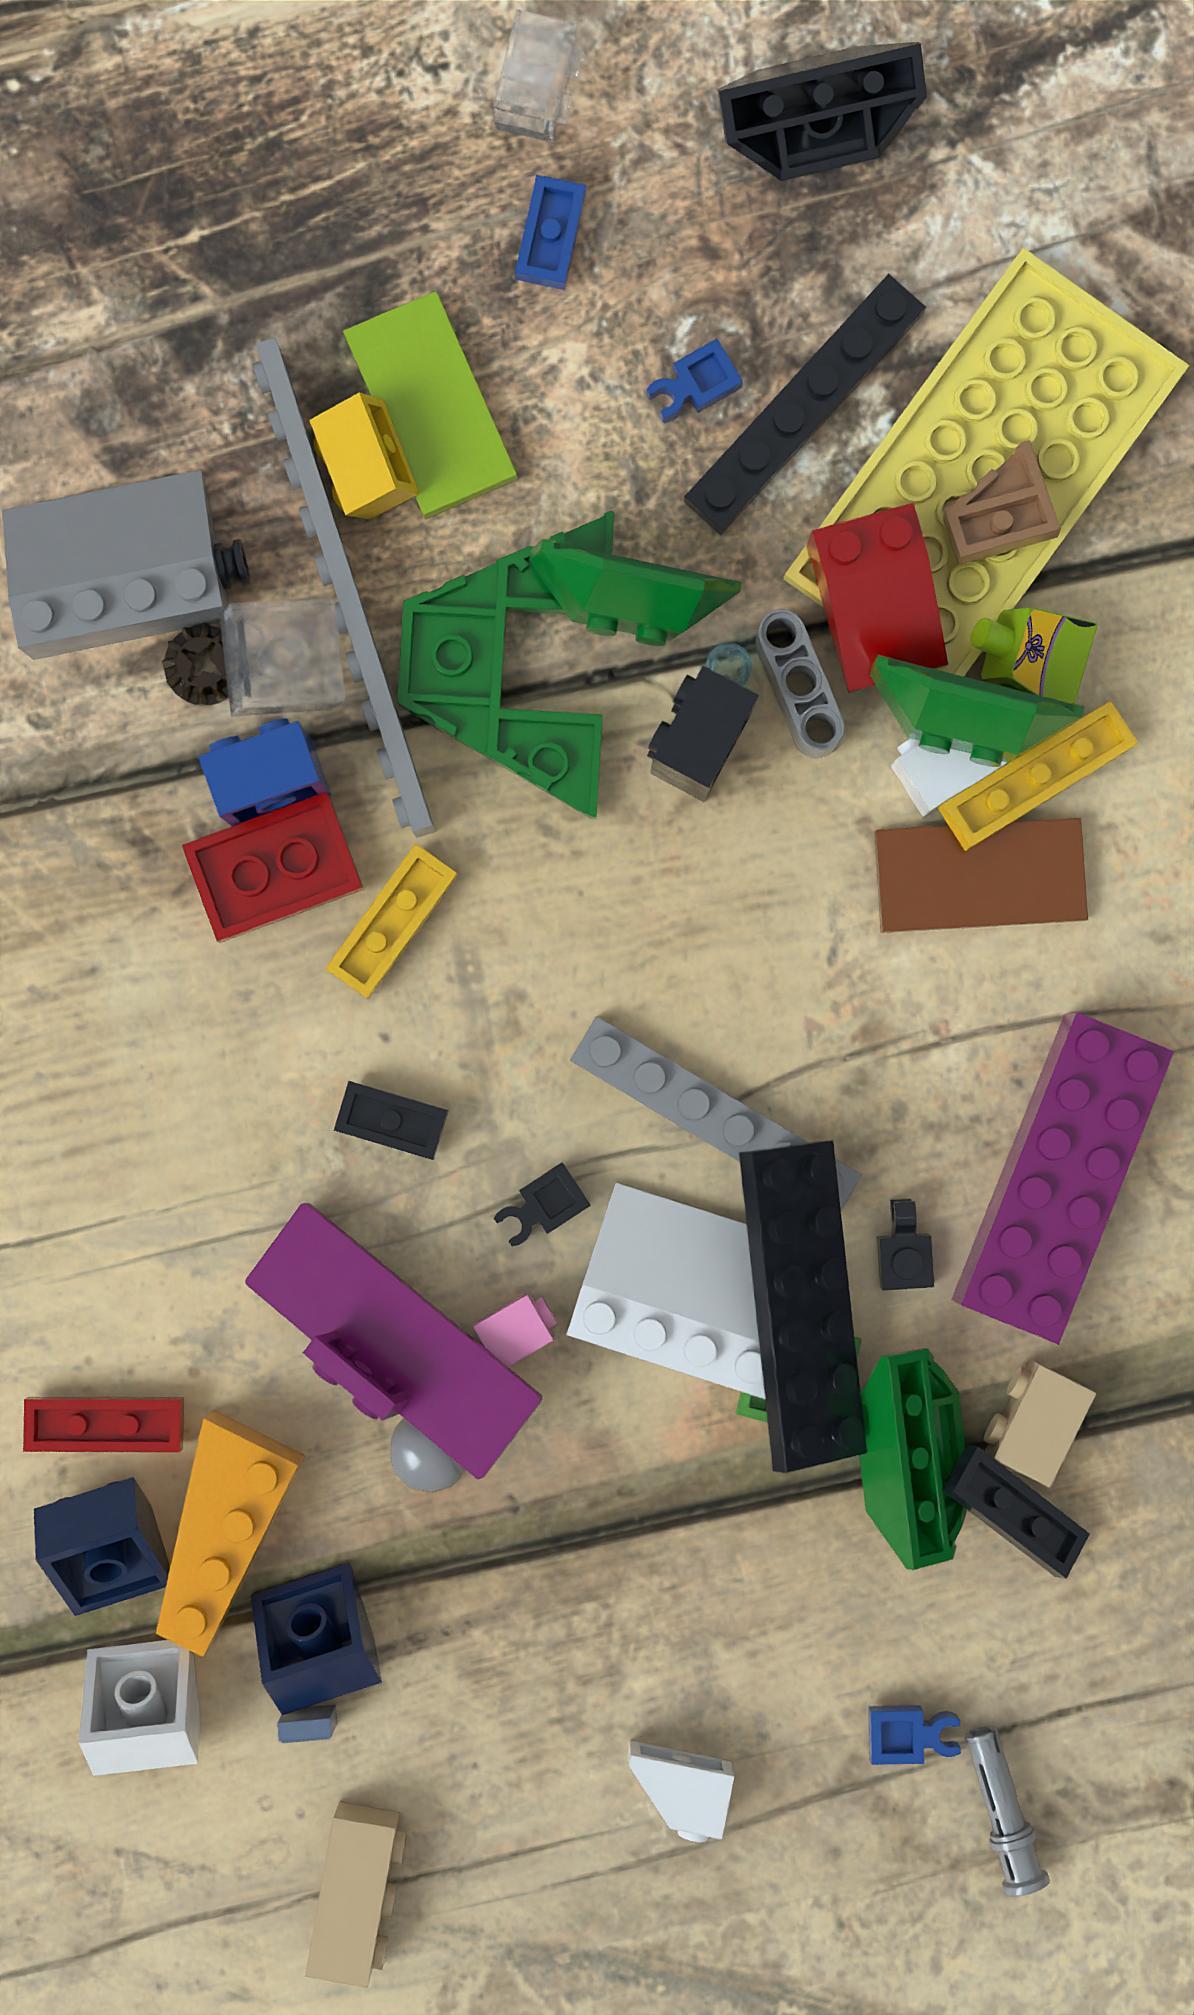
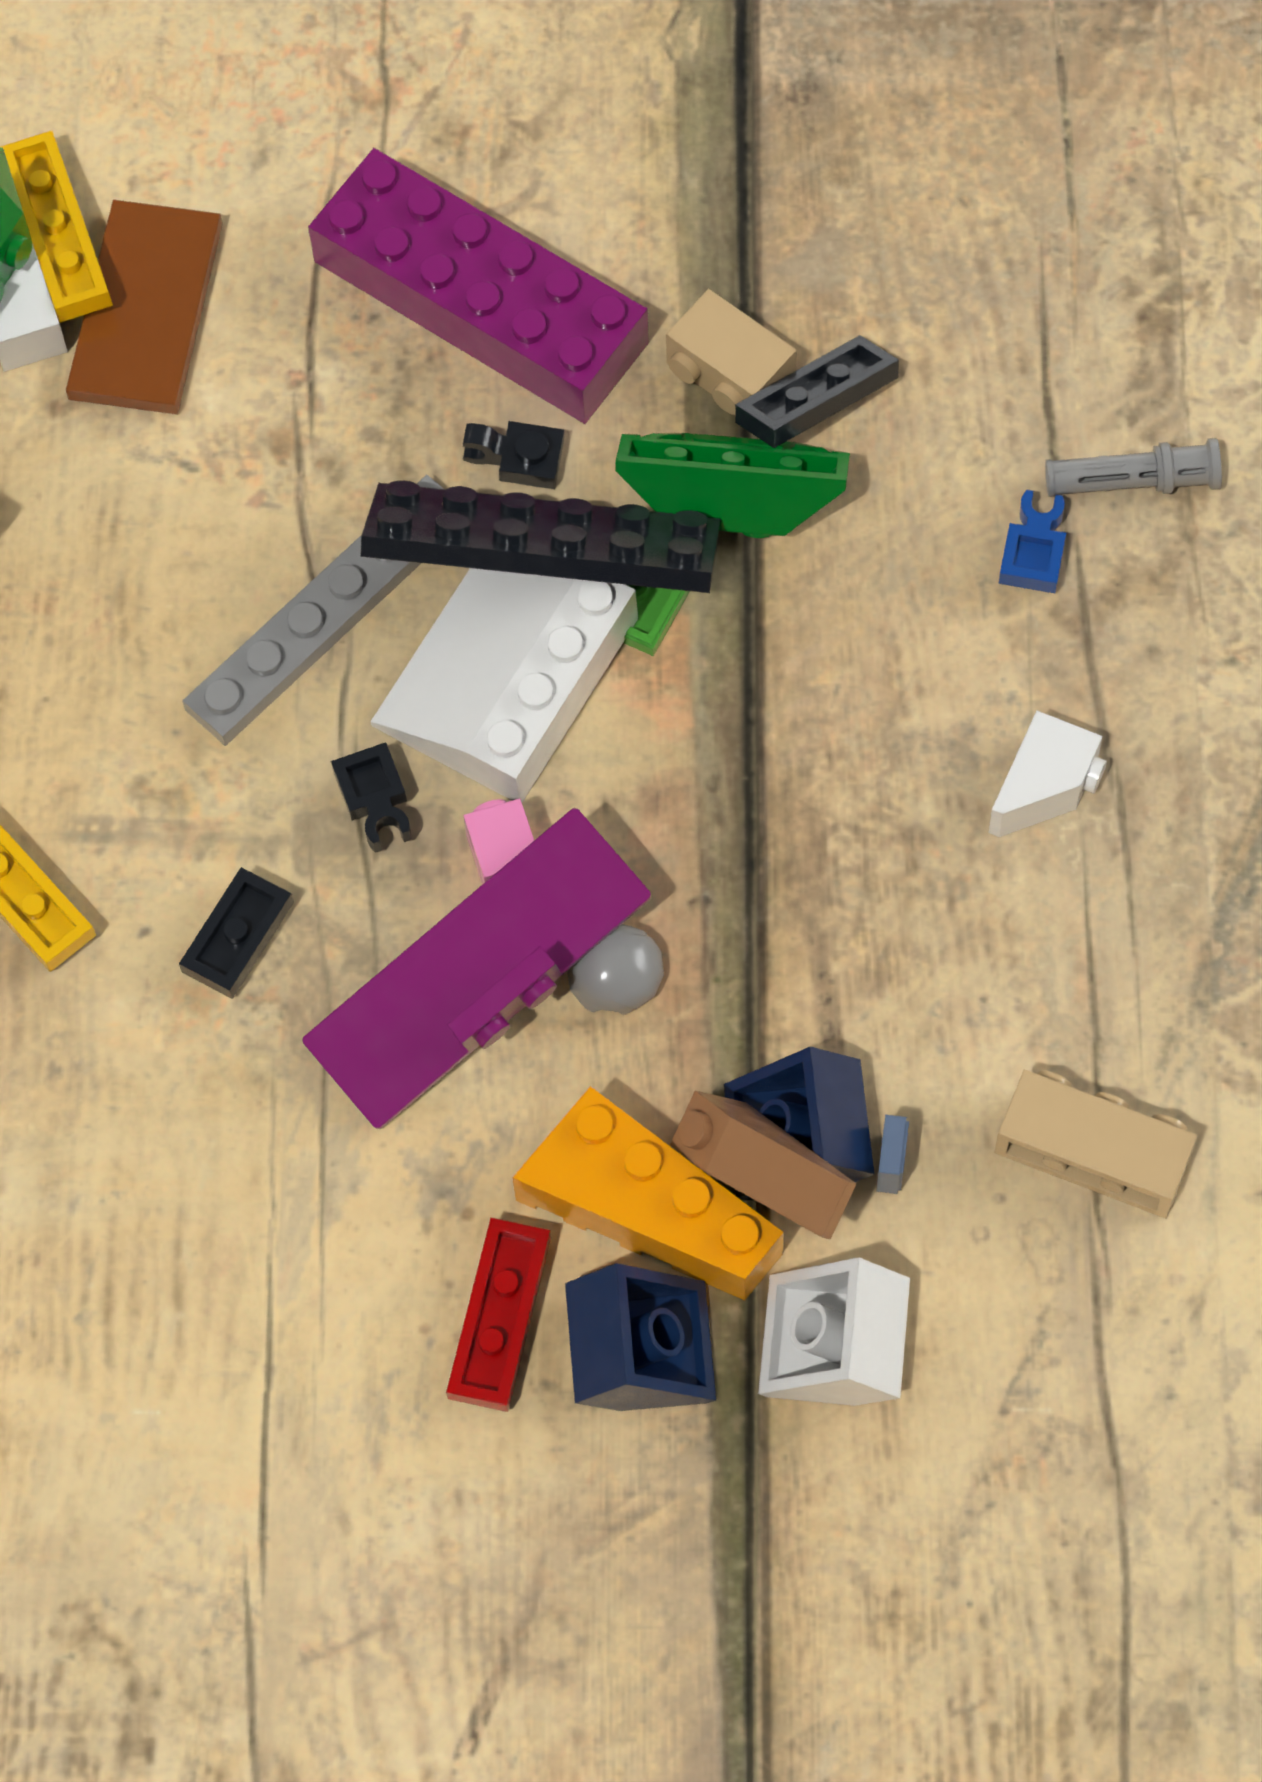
camera: 75 degrees left, 20 degrees down
(258, 1628) = (762, 1162): none -> medium nougat slope

